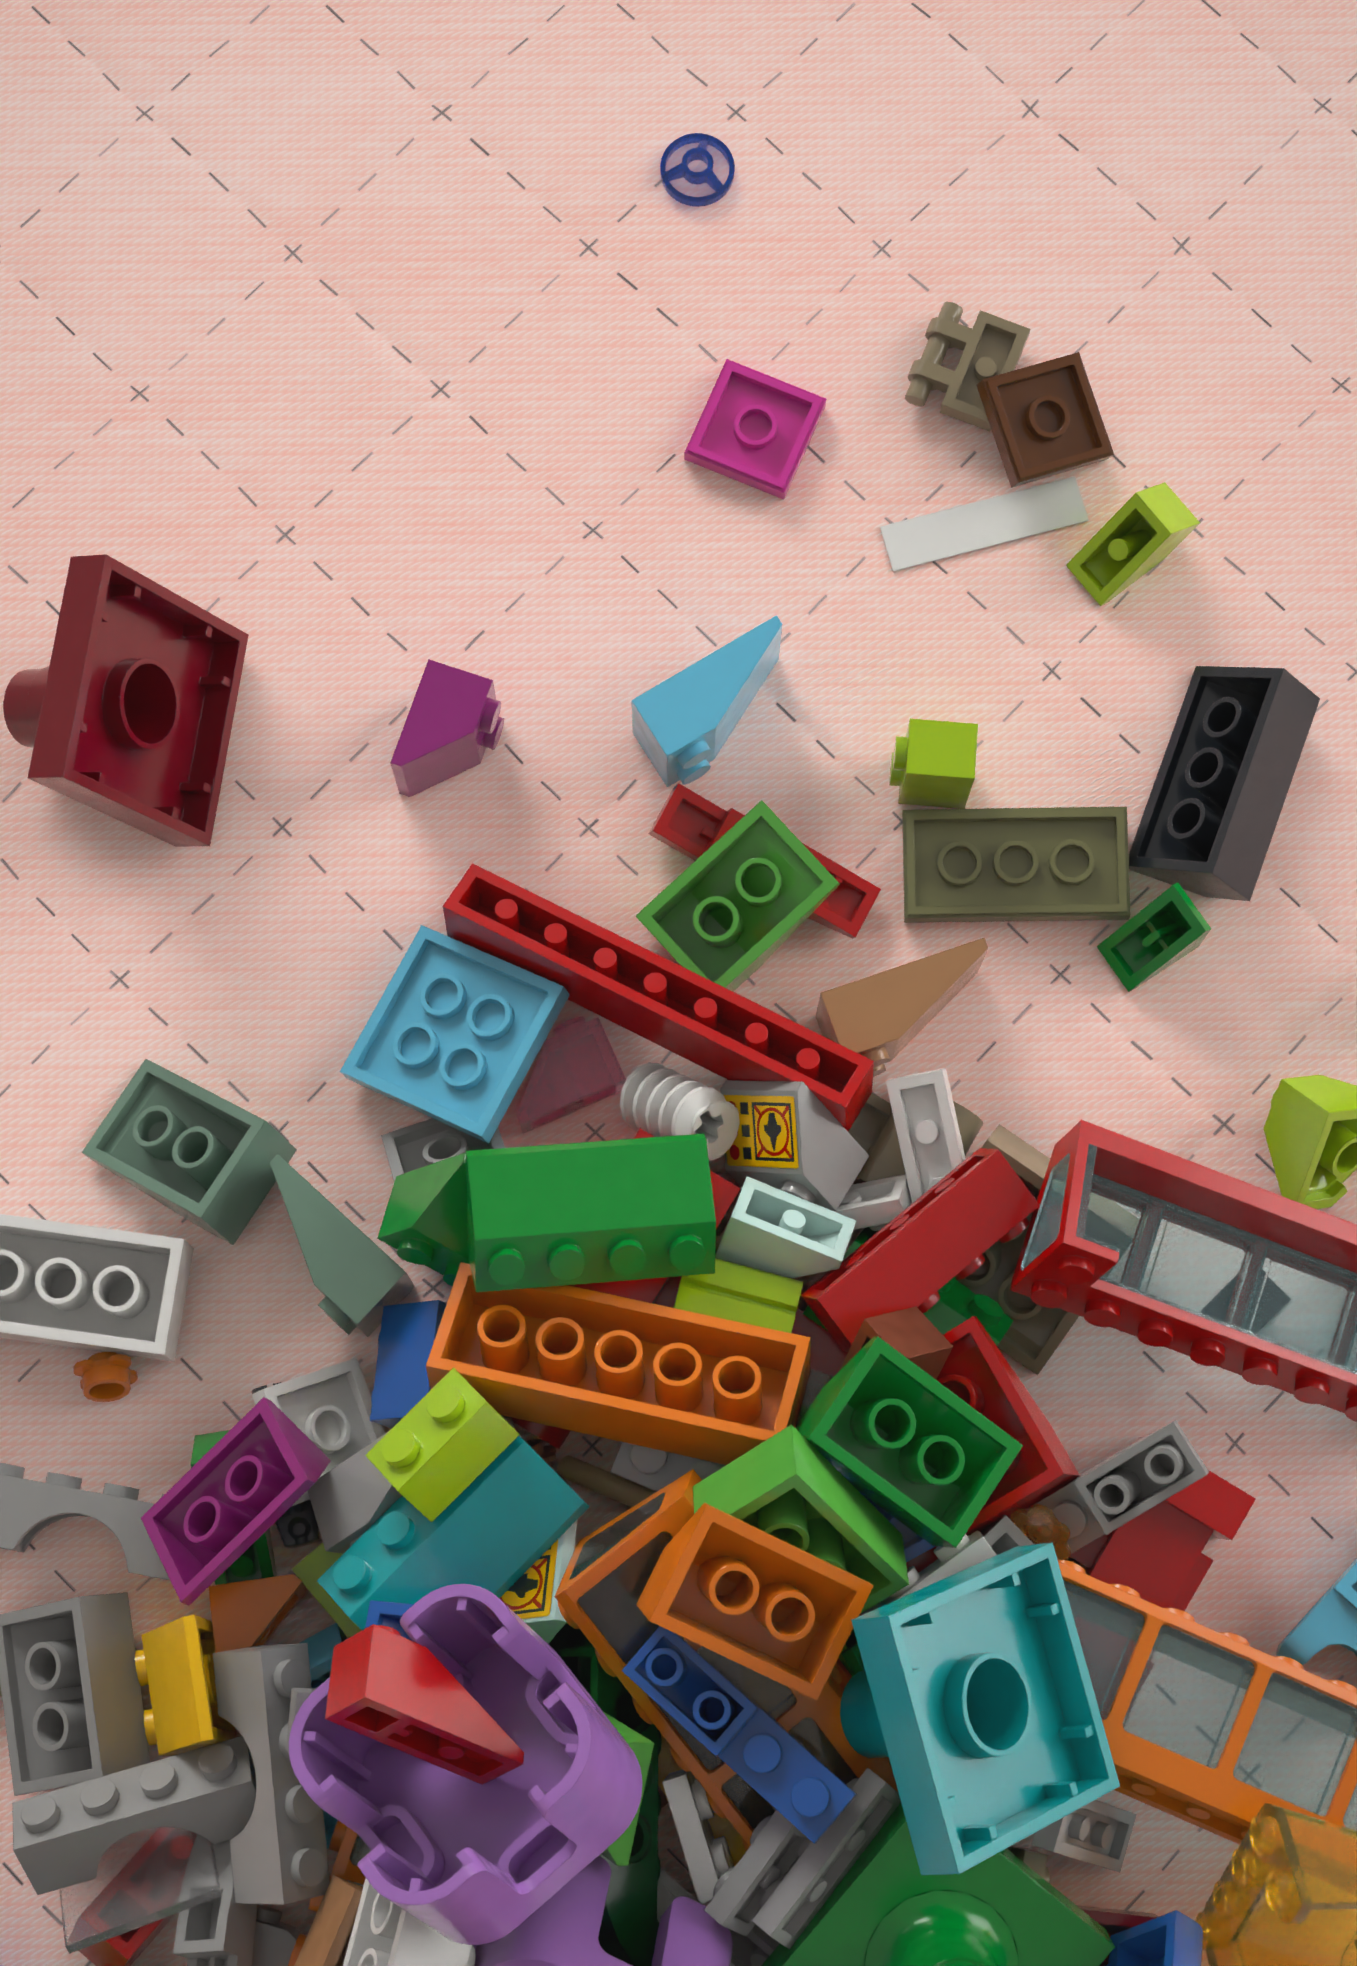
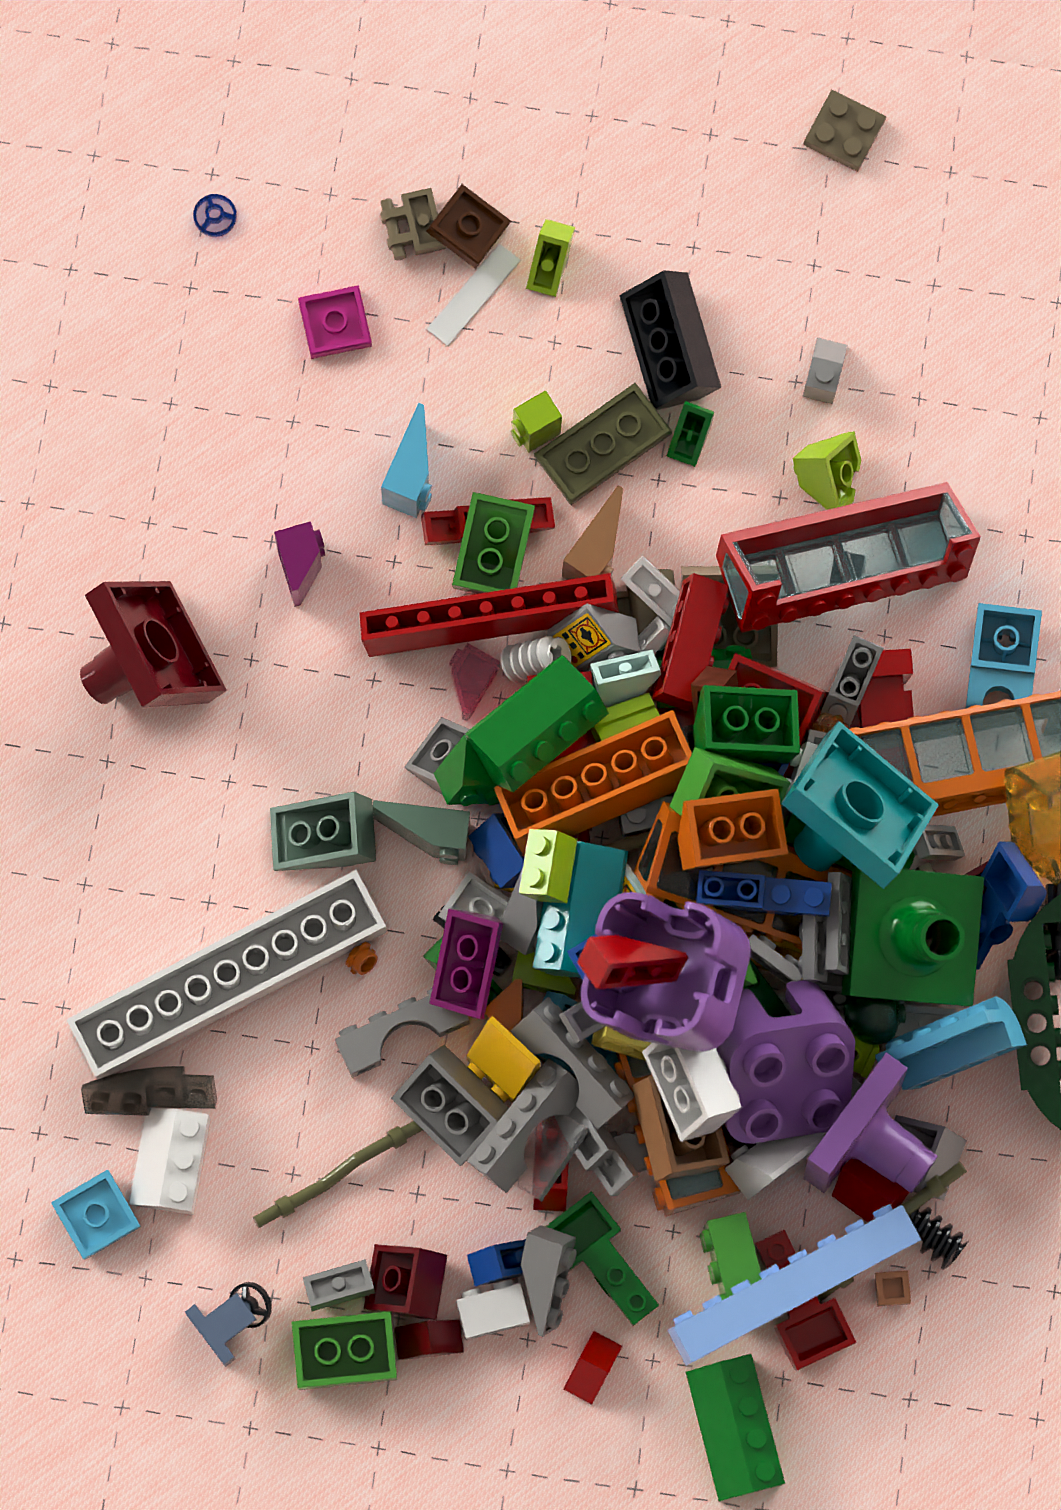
camera: 40 degrees left, 0 degrees up
(455, 1033) = (406, 695): medium azure plate -> none

